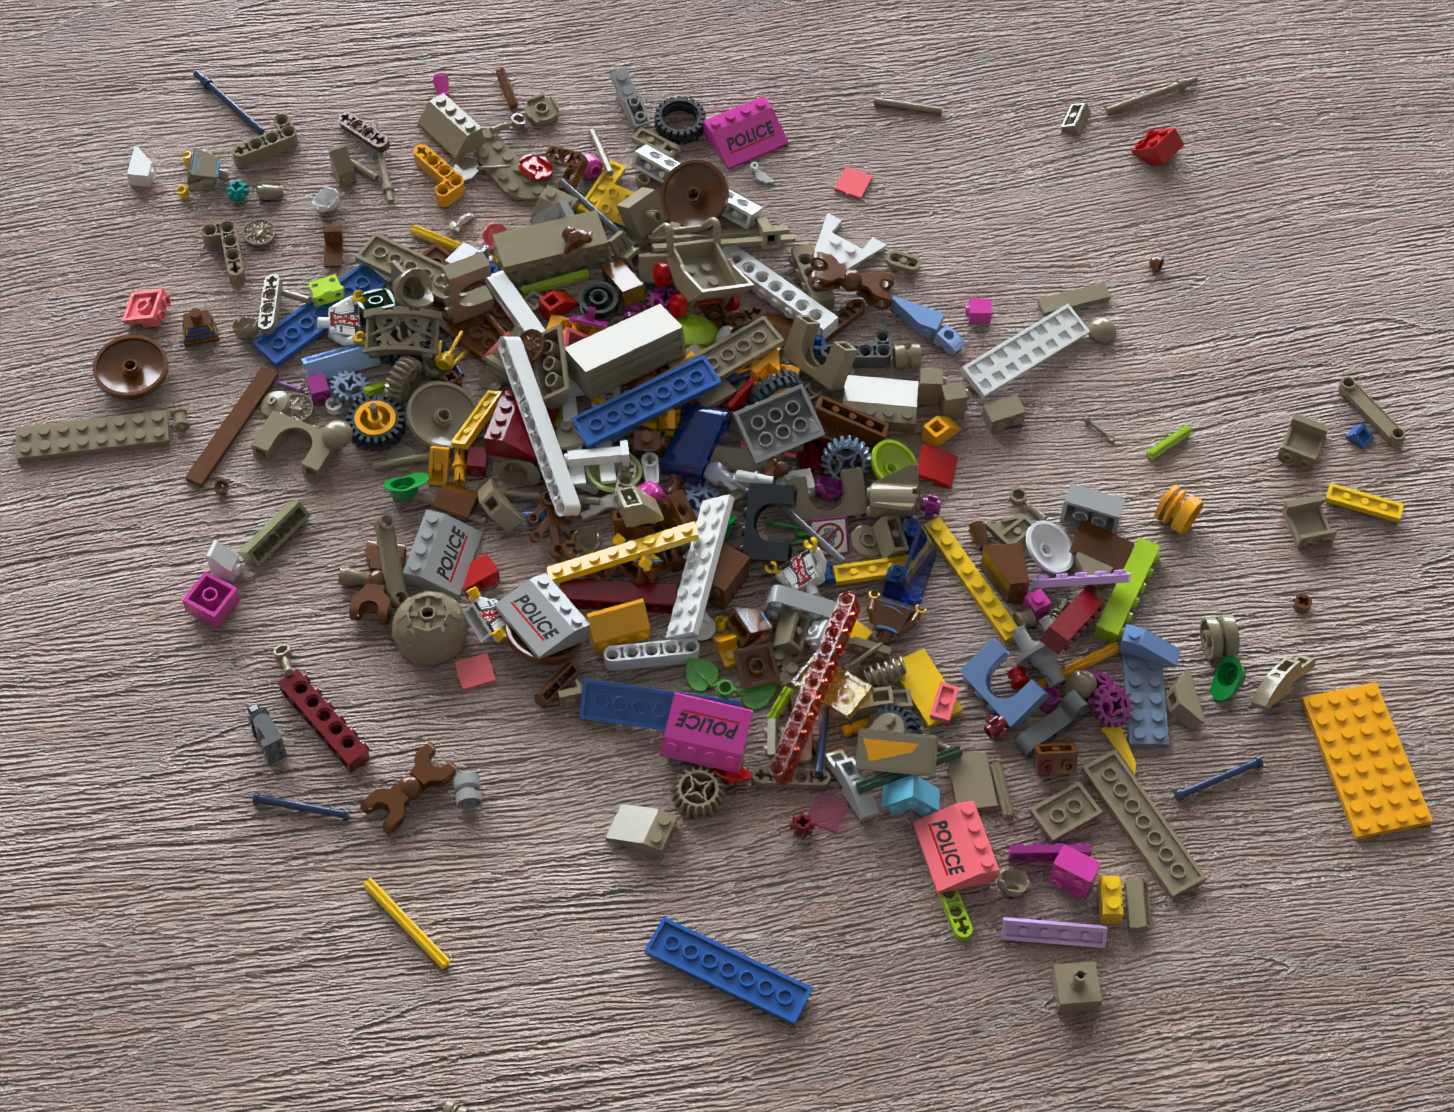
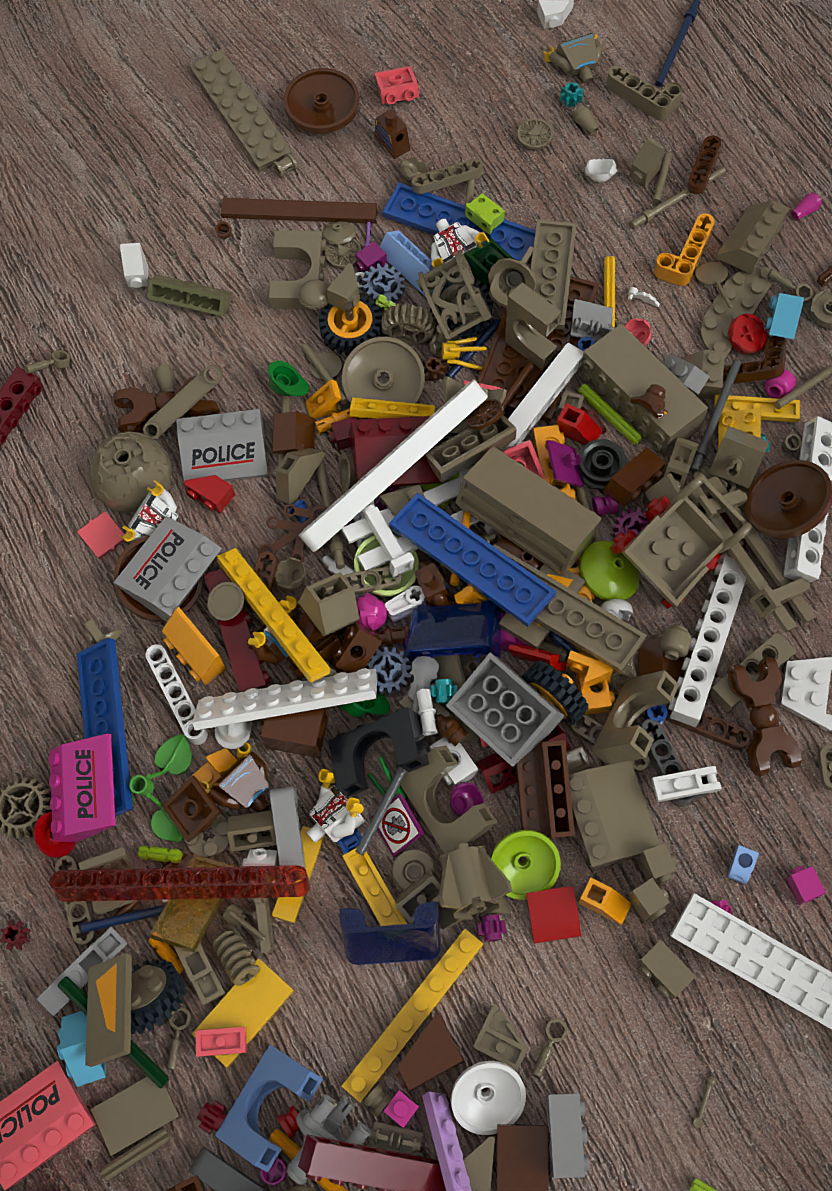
camera: 75 degrees right, 10 degrees up
(211, 600) = (90, 275): dark pink brick -> none
(225, 235) = (509, 113): dark tan beam -> none
(333, 246) = (548, 201): reddish brown bracket -> none
(350, 406) = (344, 289): none -> dark tan slope
(535, 134) = (785, 315): none -> medium azure brick
(554, 682) = (85, 605): reddish brown piece -> none
(594, 584) = (225, 601): none -> dark tan piece
(730, 320) = (649, 607): reddish brown beam -> none
(741, 462) = (443, 690): none -> teal gear
(770, 309) = (675, 642): none -> dark tan head
(828, 811) = (47, 956): clear pink piece -> none
(836, 449) = (506, 802): sand blue gear -> none
(880, 344) = (685, 784): none -> white plate
(891, 616) = (317, 937): reddish brown torso -> none
(907, 356) = (692, 821): dark tan wheel -> none
(920, 318) = (757, 823): medium blue slope -> none
(979, 534) = (477, 1001): reddish brown cone -> none

